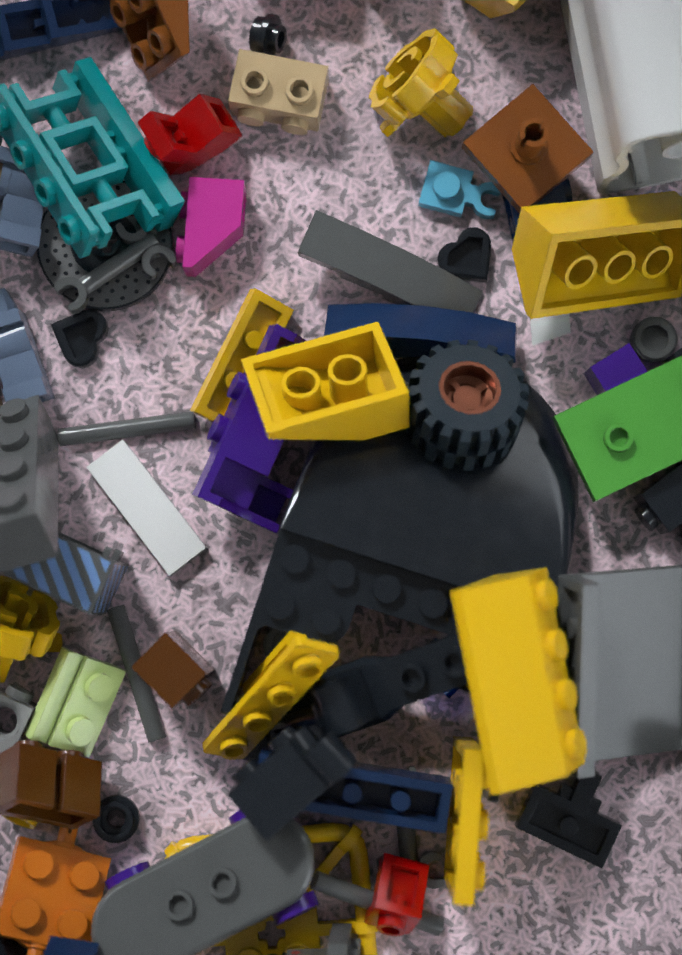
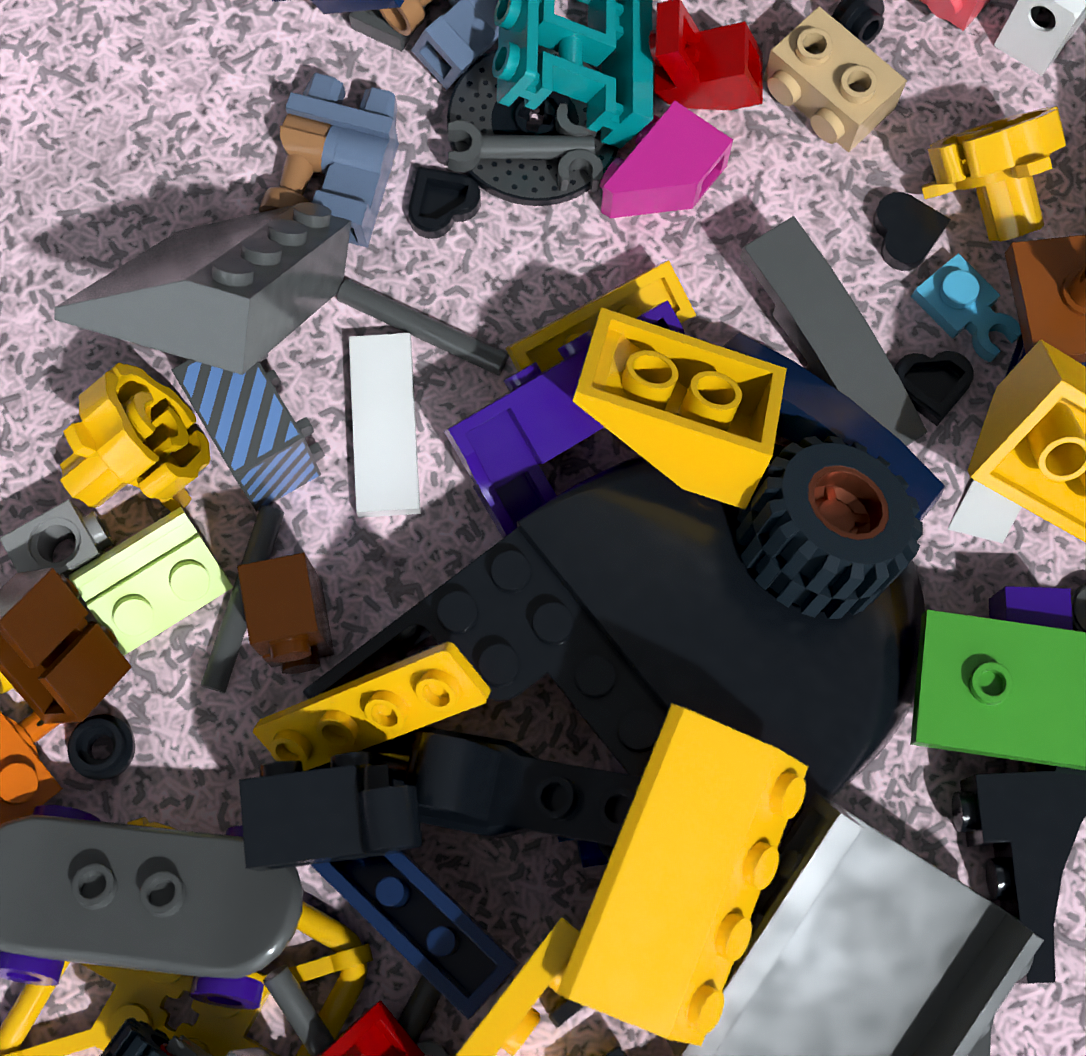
camera: 30 degrees right, 10 degrees down
(389, 162) = (907, 229): none -> black tile

